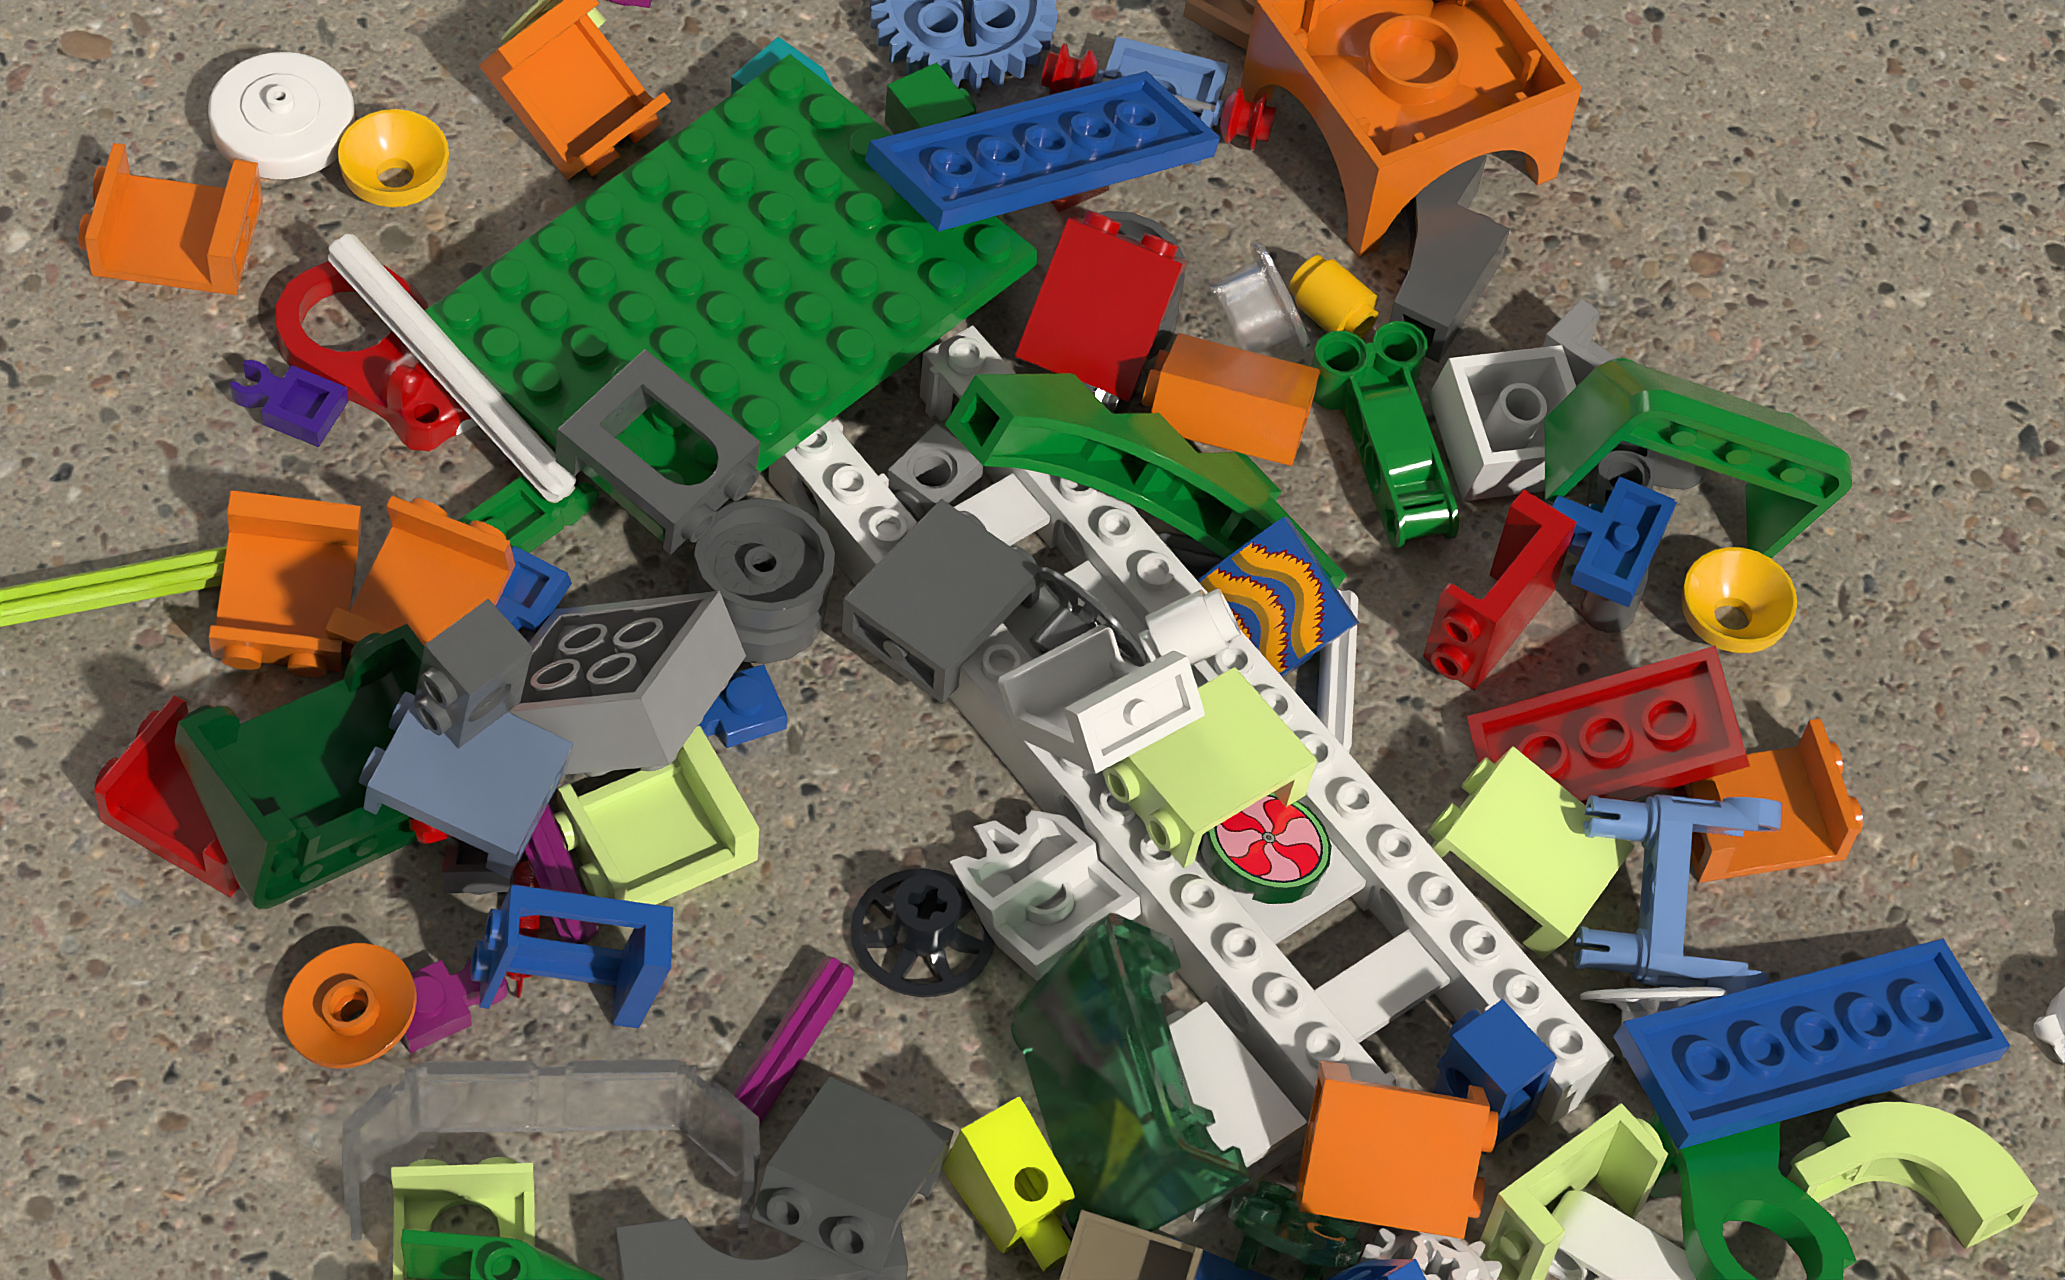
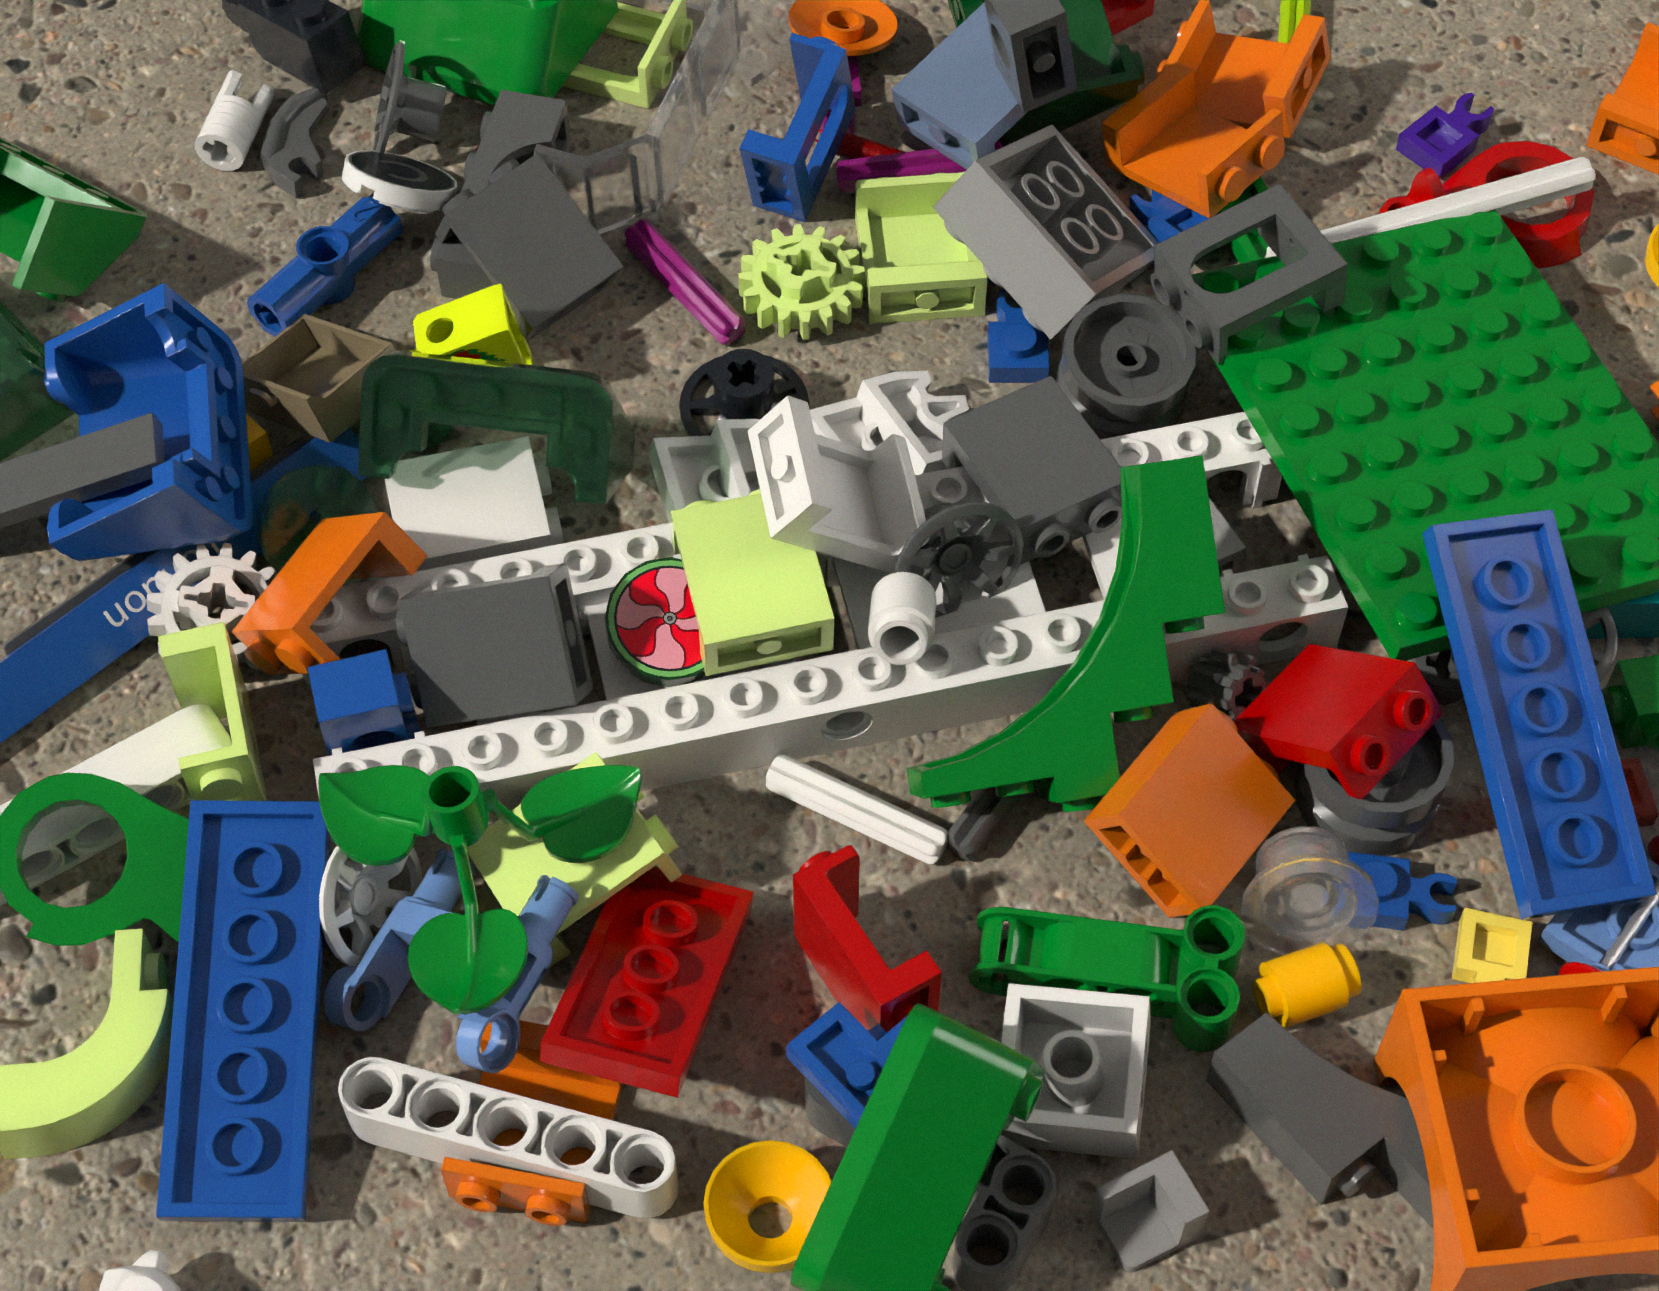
camera: 120 degrees right, 0 degrees up
(720, 924) = (801, 281): none -> yellowish green gear
(920, 769) = (897, 406): none -> white plate
(1202, 268) = (1405, 894): none -> blue plate
(1241, 189) = (1491, 947): none -> light yellow plate
(1281, 597) = (926, 741): slope -> none
(1394, 958) = (495, 647): none -> dark grey panel
(1604, 965) = (473, 956): none -> green plant
(1804, 831) = (488, 1112): none -> white beam

